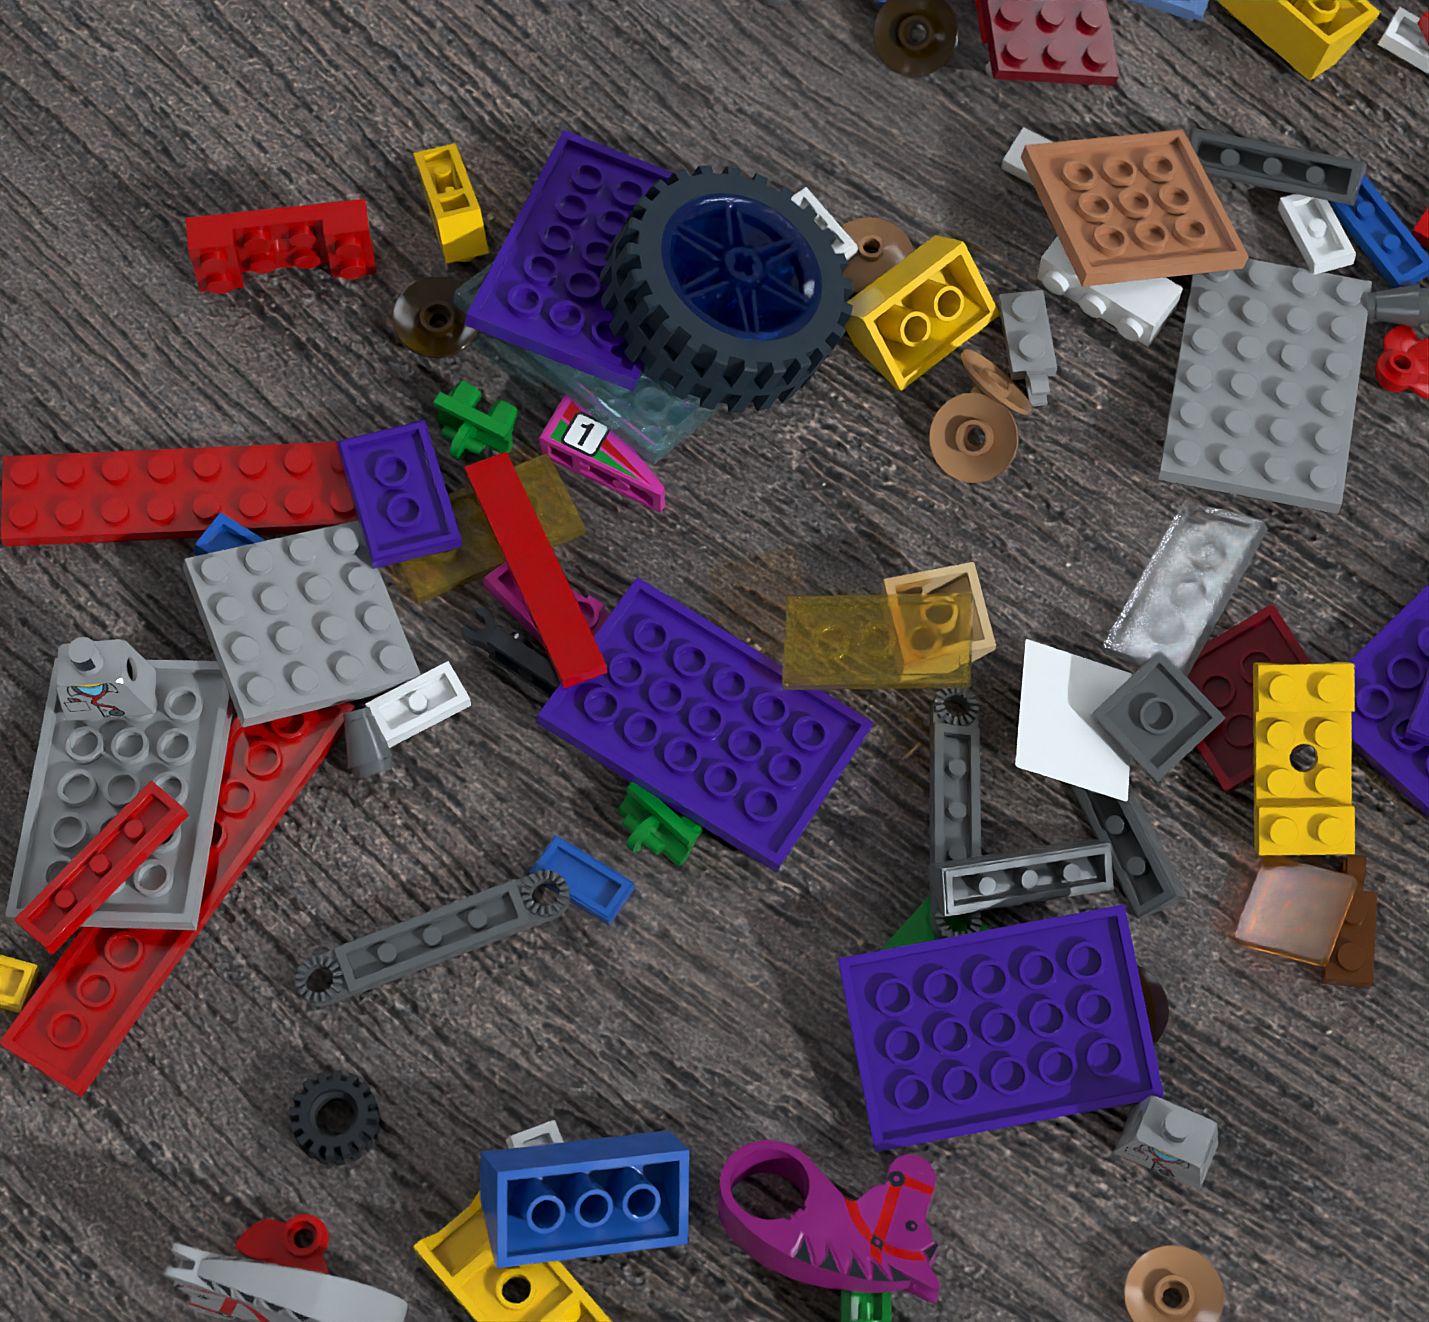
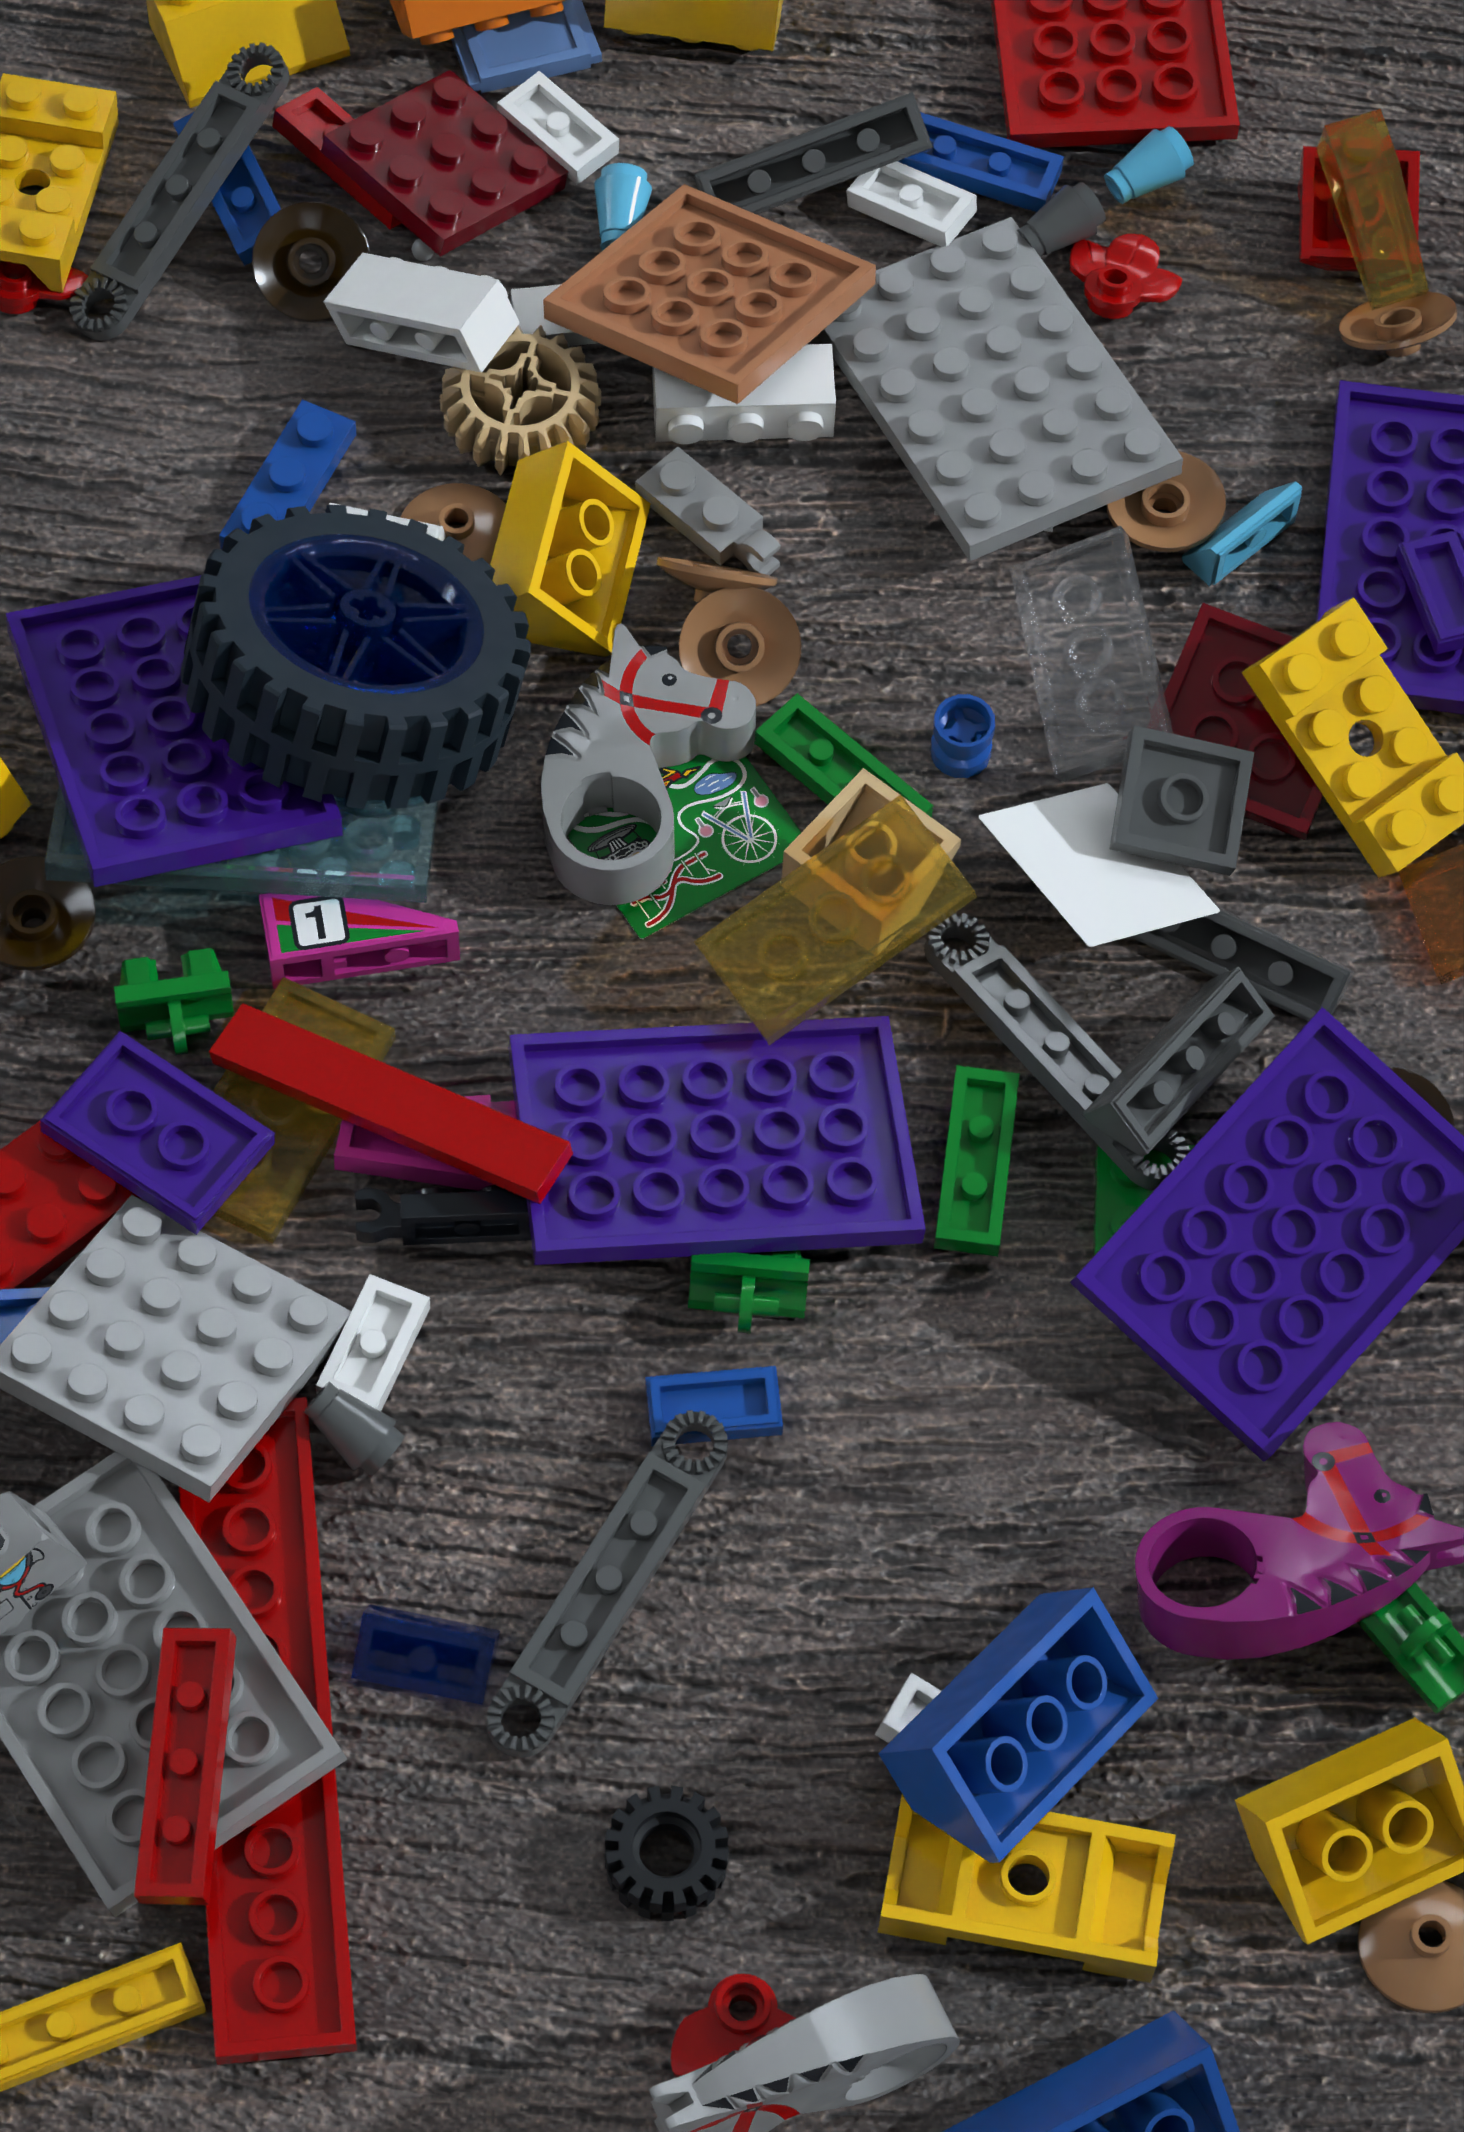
camera: 40 degrees left, 5 degrees down
(303, 902) = (425, 1654): none -> clear blue slope
(804, 155) = (295, 466): none -> blue plate
(843, 445) = (608, 754): none -> light grey animal
(851, 526) = (723, 833): none -> green sticker
(854, 847) = (977, 1161): none -> green plate
(950, 106) = (422, 312): none -> white brick
(971, 539) = (823, 753): none -> green plate
(972, 182) = (523, 397): none -> tan gear
(1066, 574) = (972, 727): none -> blue wheel
(1135, 115) = (620, 199): none -> medium azure cone
(1136, 45) = (559, 126): none -> white plate
(1336, 532) = (1195, 506): none -> medium nougat dish
(1350, 578) = (1245, 533): none -> medium azure slope

